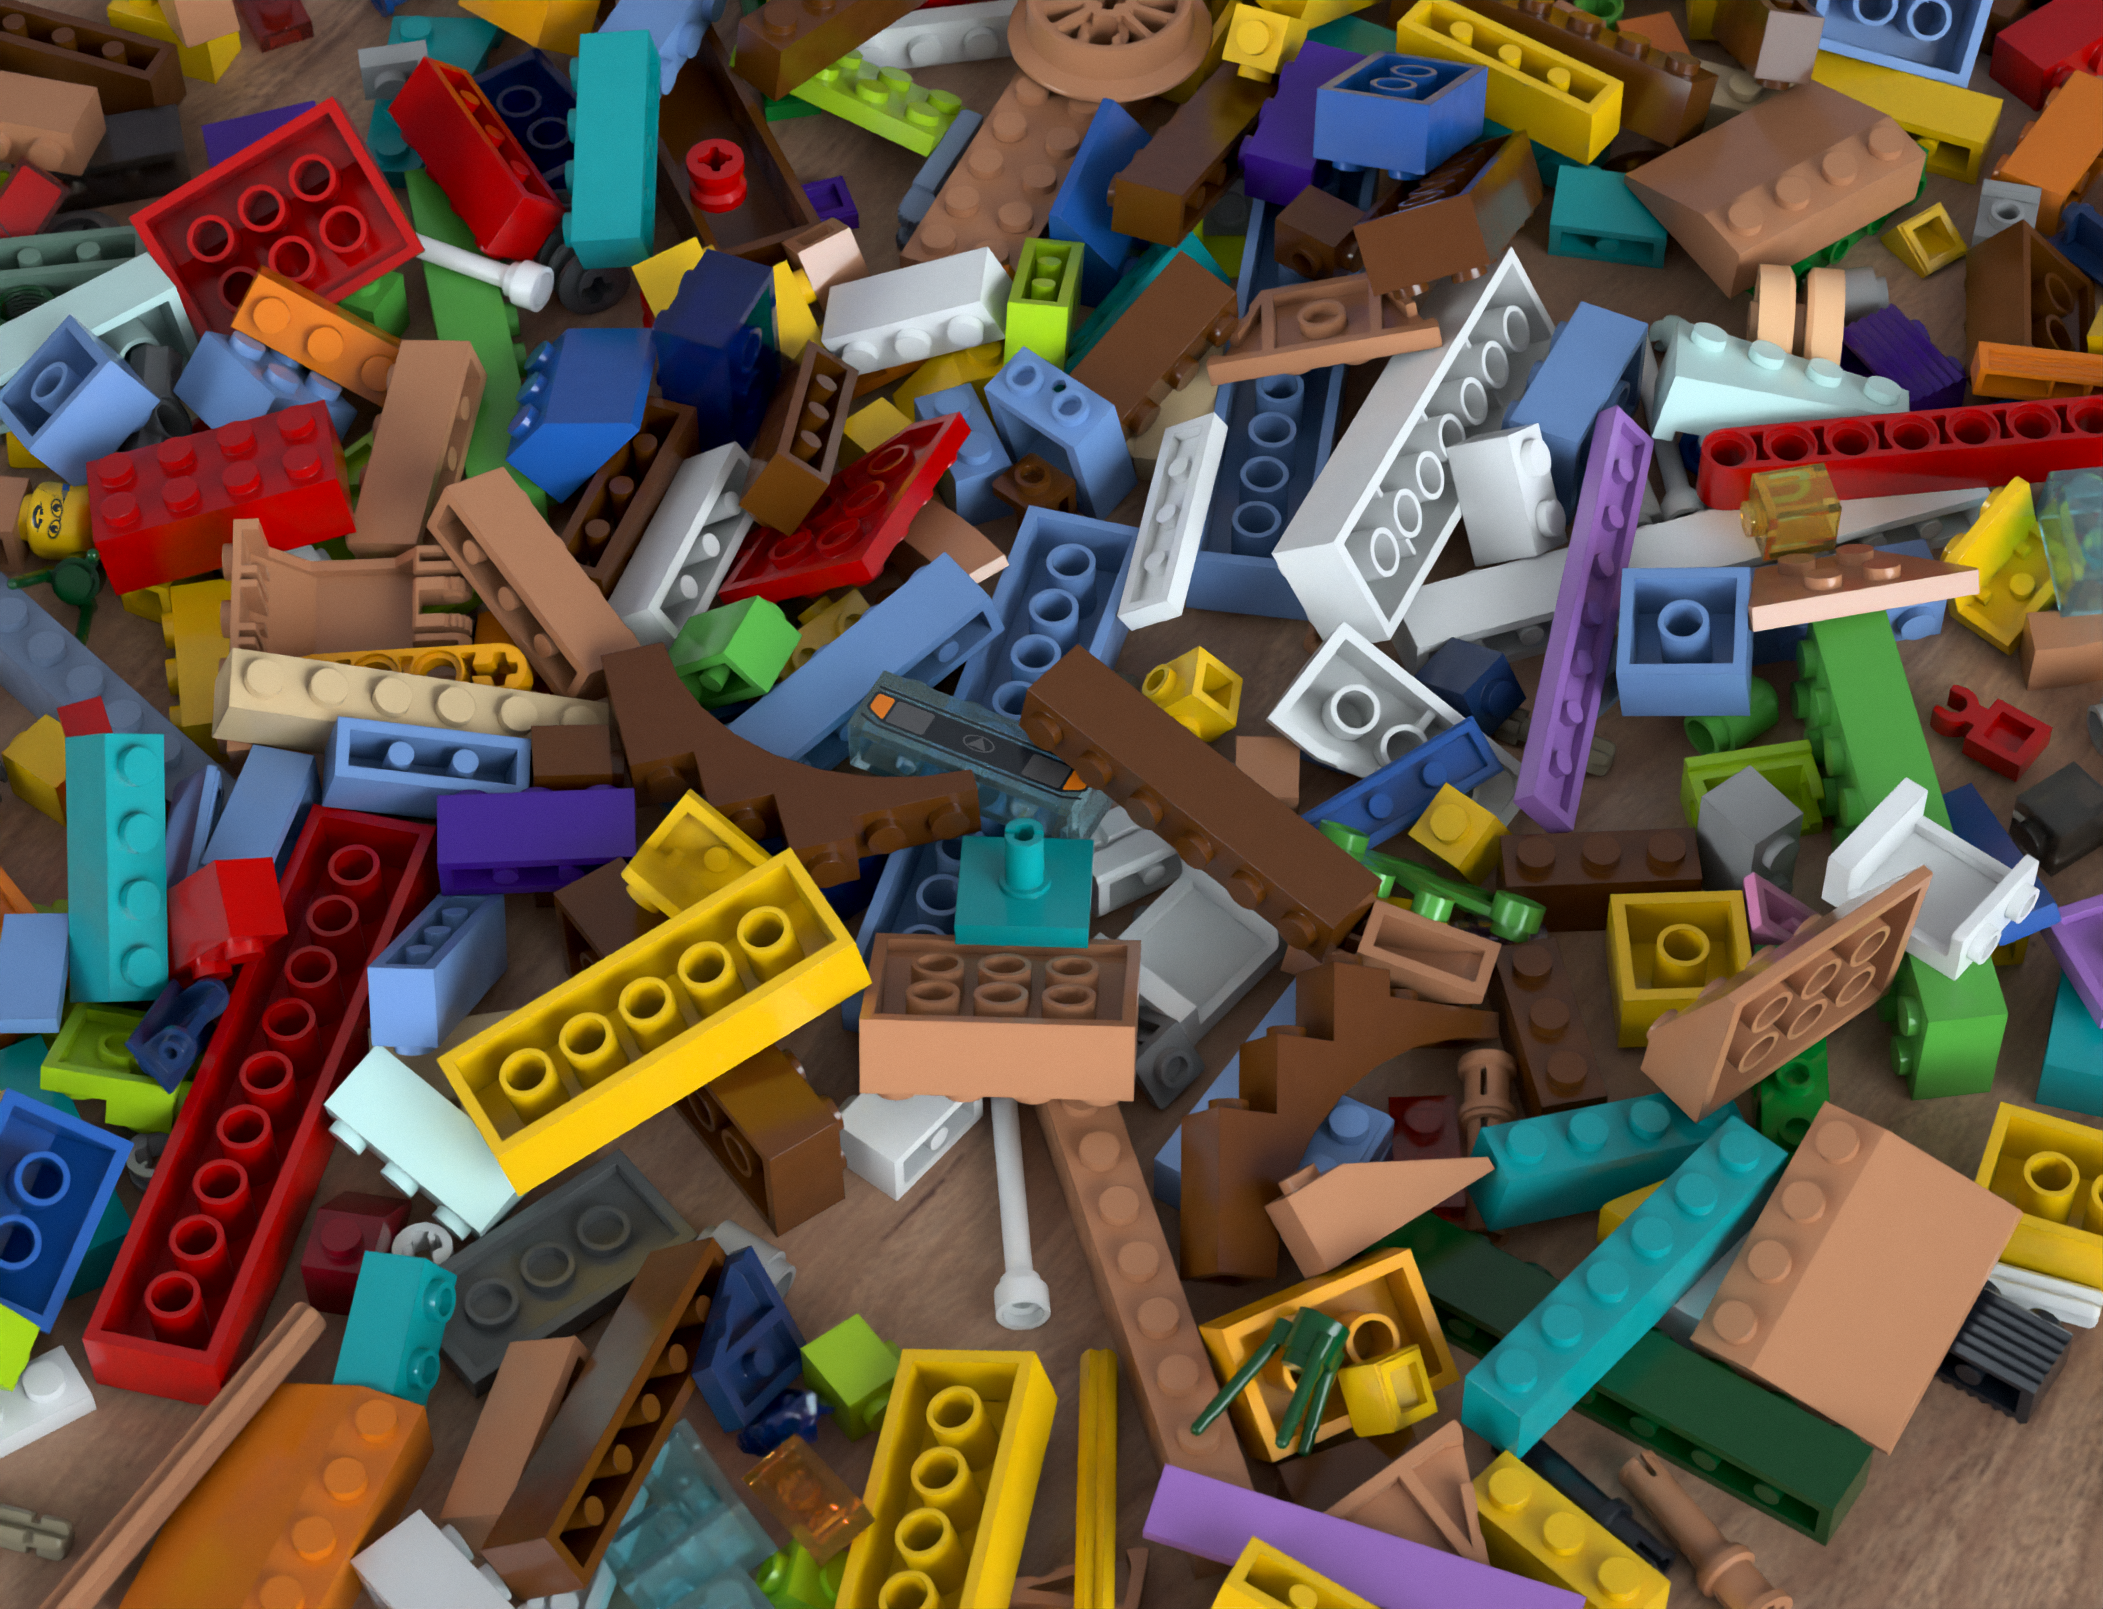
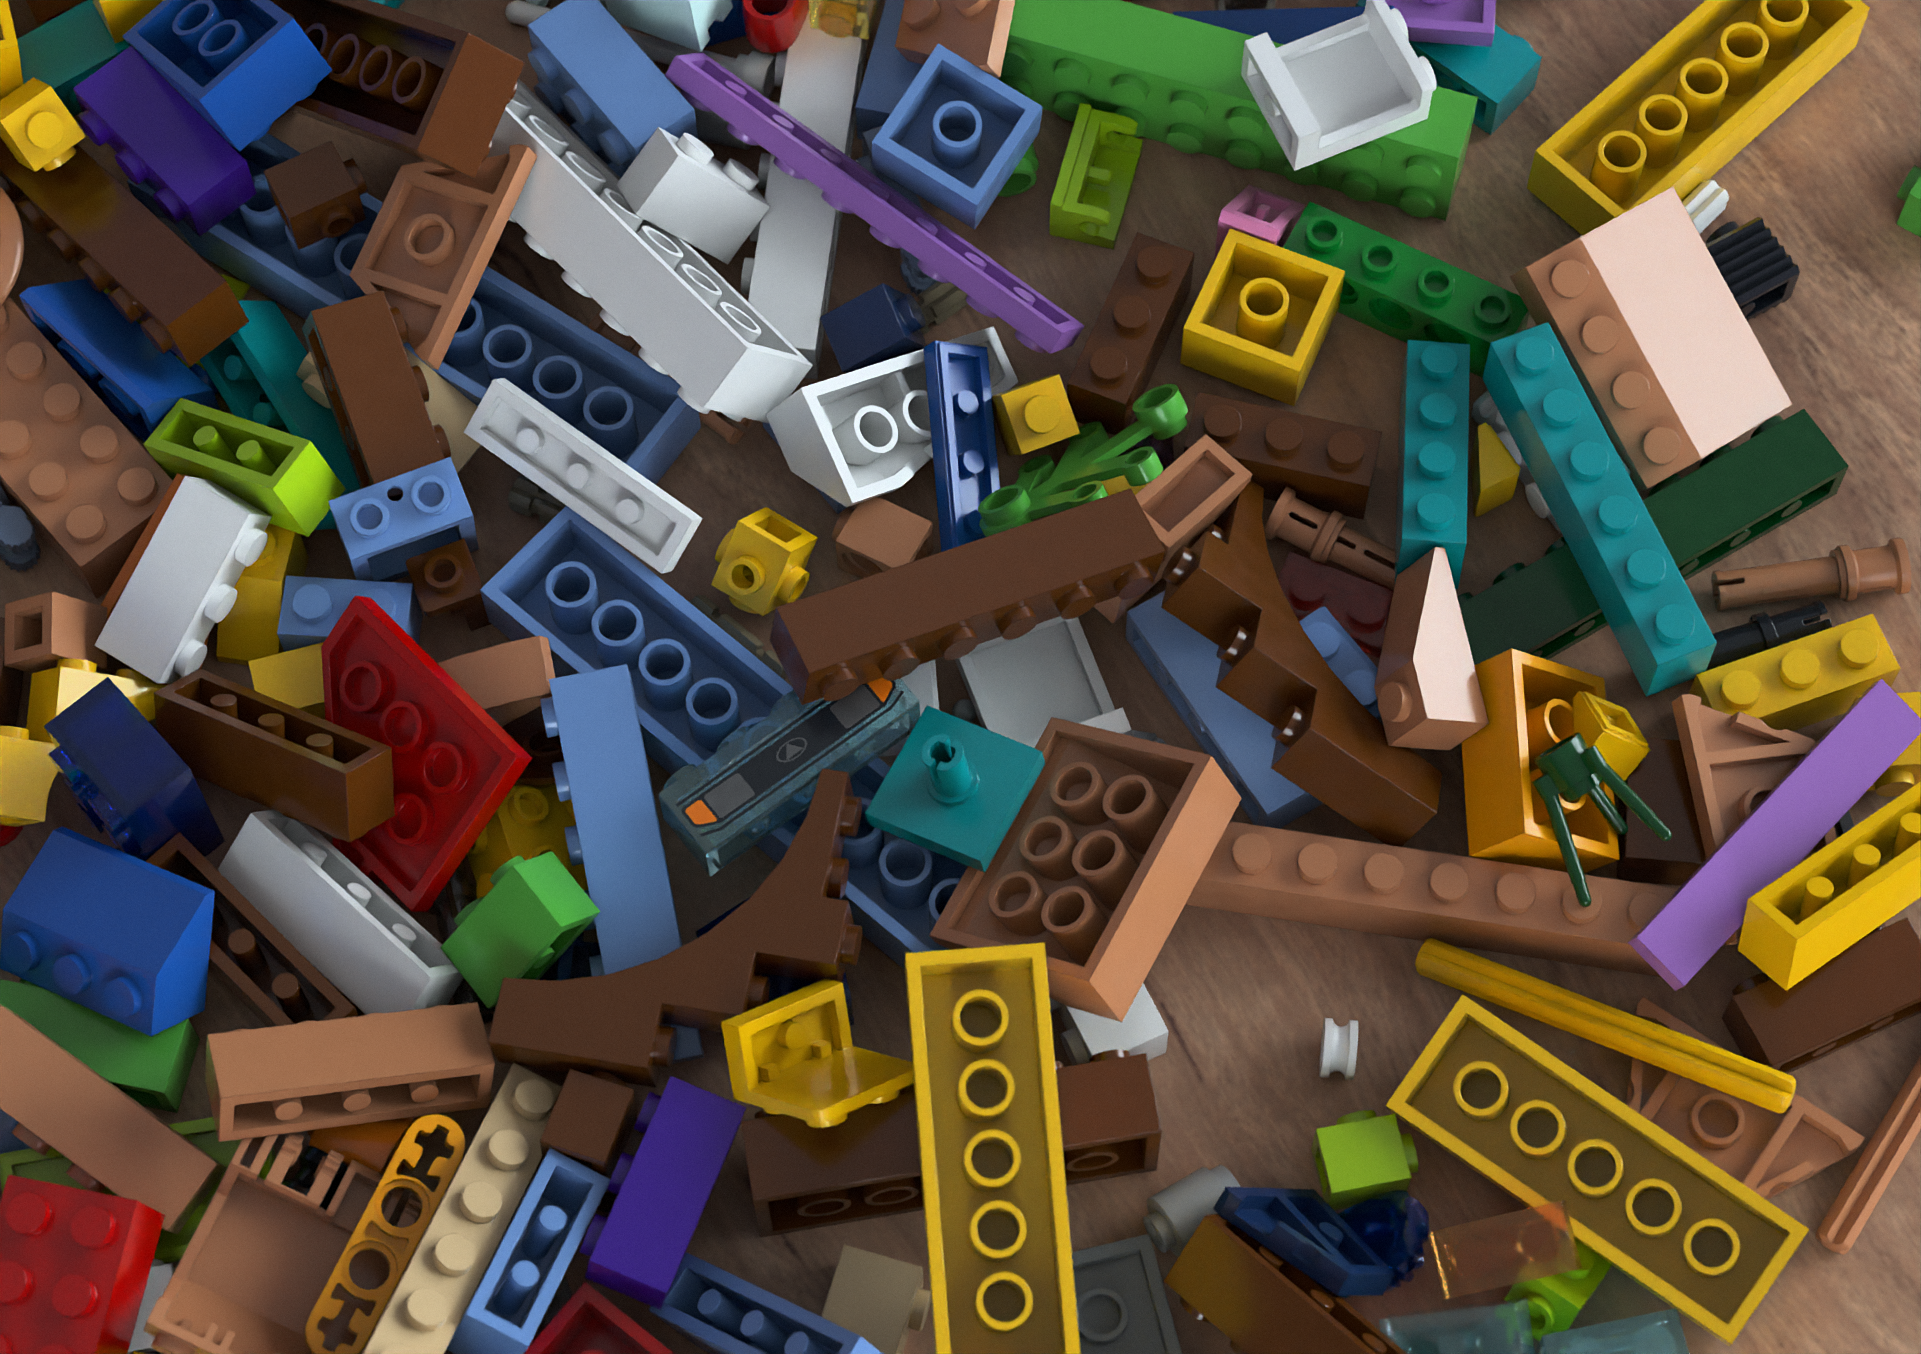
camera: 65 degrees left, 15 degrees up
(962, 1319) = (1338, 1048): none -> white bush
(1021, 1295) = (1328, 987): white piece -> none
(1746, 830) = (1172, 195): light grey brick -> none
(1784, 998) = (1402, 237): nougat slope -> none

